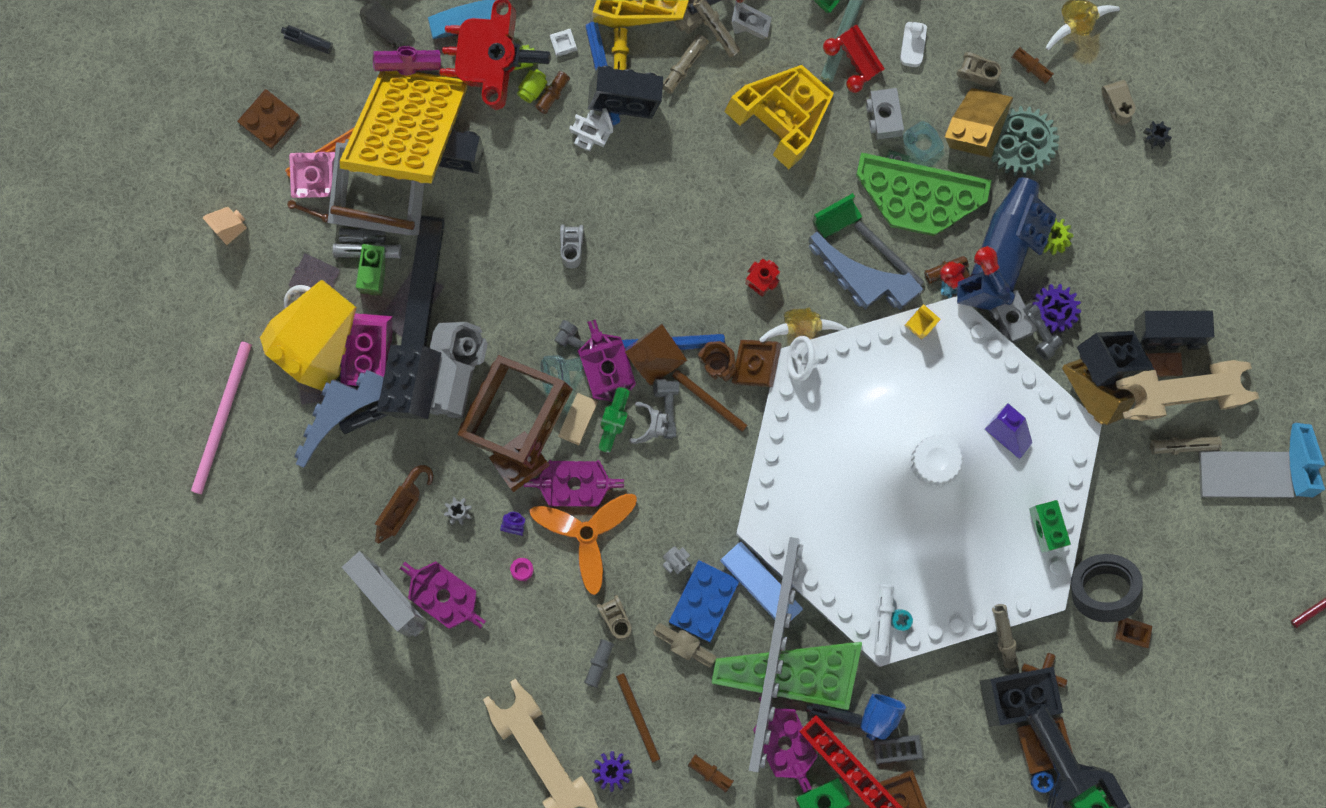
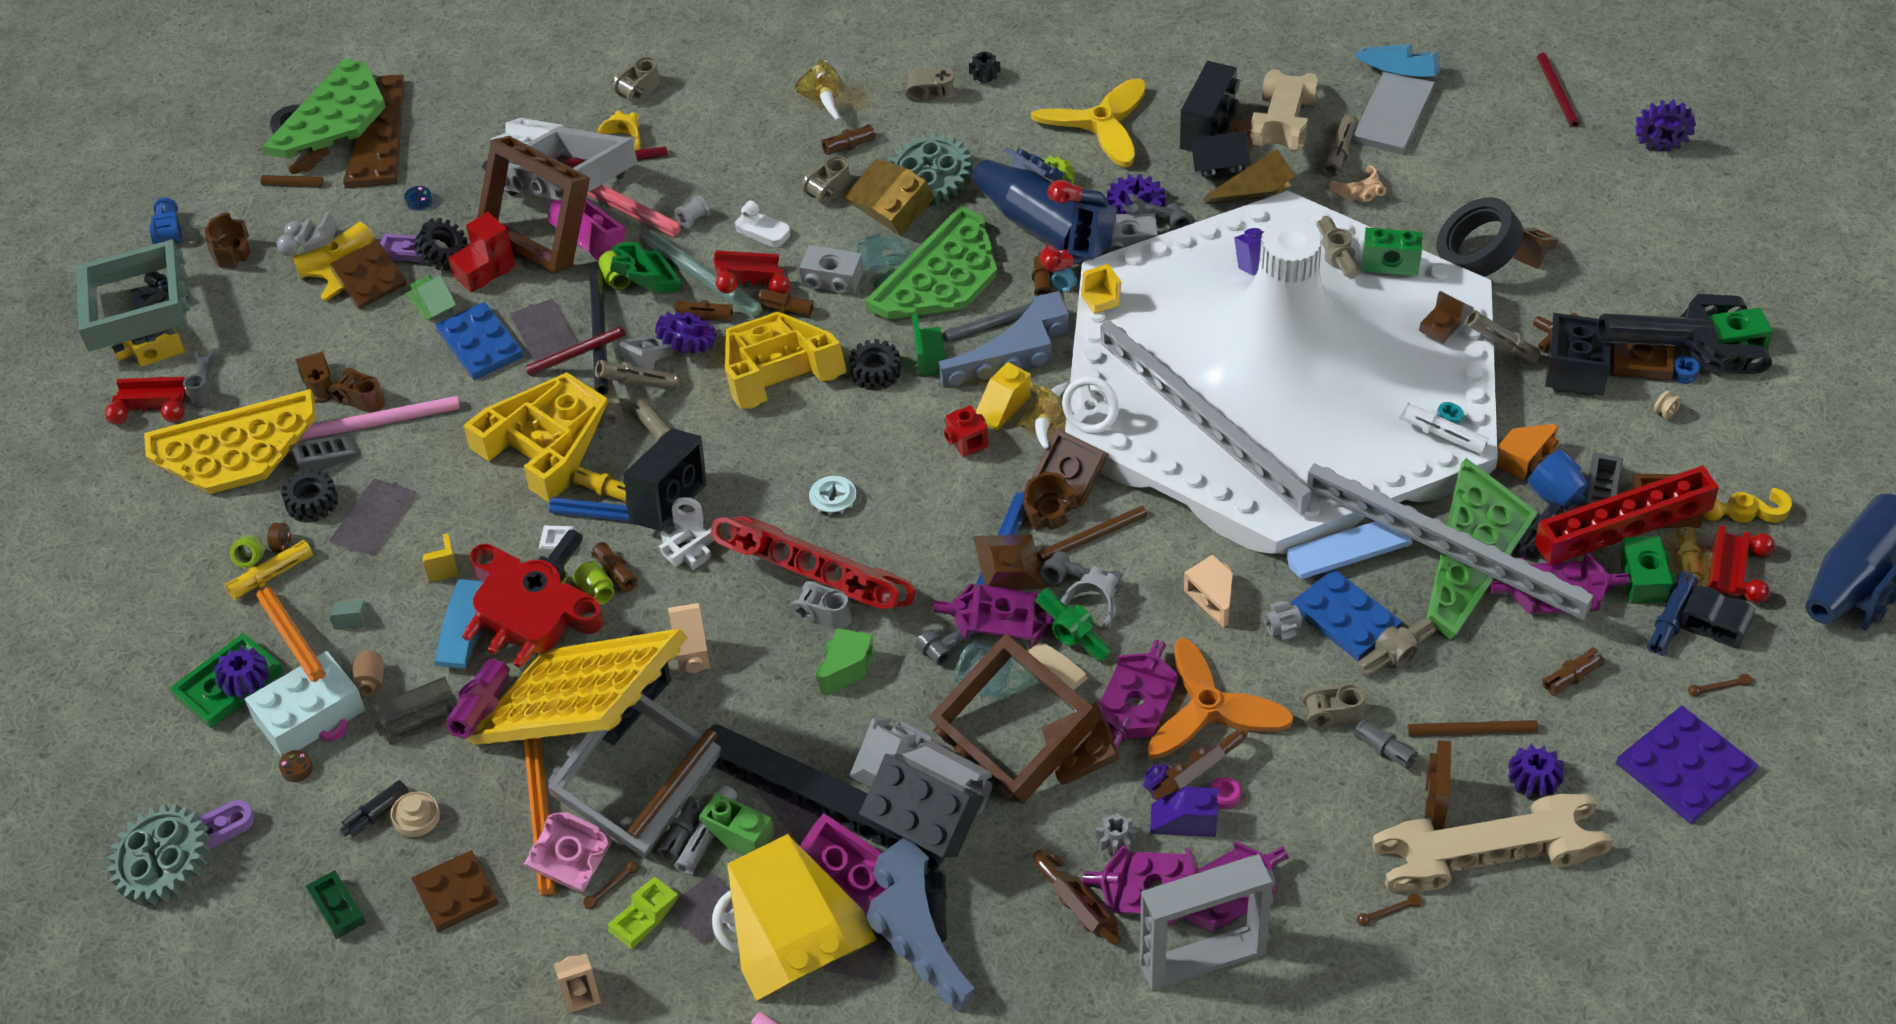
camera: 65 degrees left, 30 degrees down
(230, 53) = (335, 904): none -> dark green plate
(293, 240) = (646, 911): none -> lime slope
(311, 66) = (415, 814): none -> tan plate
(416, 534) = (1135, 871): none -> magenta plate
(456, 691) = (1414, 901): none -> reddish brown hinge
(490, 550) = (1186, 812): none -> dark purple slope
(501, 173) = (693, 651): none -> light nougat slope
(529, 545) = (1201, 760): none -> reddish brown plate
(530, 280) = (846, 660): none -> bright green slope
(557, 712) = (1438, 785): none -> reddish brown plate
(602, 186) = (857, 581): none -> red piece
(679, 200) = (822, 490): none -> light aqua gear
(688, 502) = (1211, 587): none -> light nougat slope
(782, 49) = (685, 332): none -> dark purple gear
(805, 173) = (874, 353): none -> black tyre
(808, 289) = (1004, 395): none -> yellow slope
(811, 41) = (706, 310): none -> reddish brown pin
(819, 452) = (1206, 418): none -> light grey plate
(841, 96) = (786, 302): none -> reddish brown axle
(907, 683) = (1526, 448): none -> orange slope
(996, 777) = (1667, 404): none -> tan bush
(1002, 588) = (1445, 317): none -> reddish brown slope
(1031, 491) = (1338, 247): none -> dark tan axle
(1139, 482) = (1362, 190): none -> light nougat helmet
(1153, 253) = (1103, 120): none -> yellow piece
(1305, 700) = (1665, 125): none -> dark purple gear

